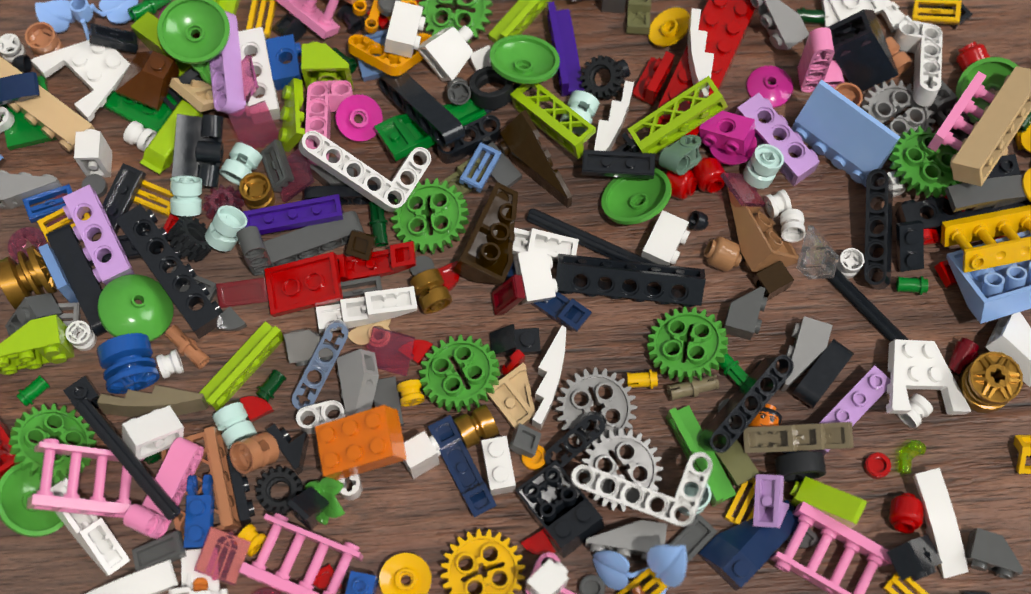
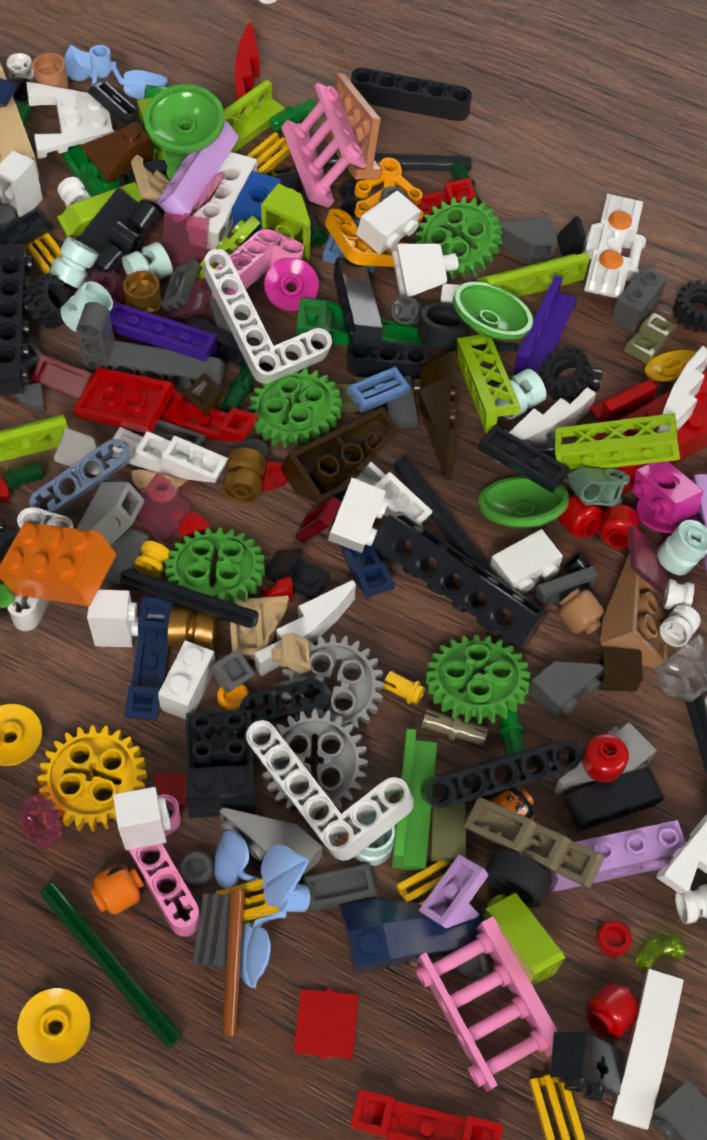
camera: 30 degrees right, 10 degrees down
(462, 408) = (189, 598): none -> black axle
(561, 404) = (293, 653): none -> tan tile
(701, 242) = (559, 588): none -> dark grey tile
(808, 352) = (605, 758): none -> red head

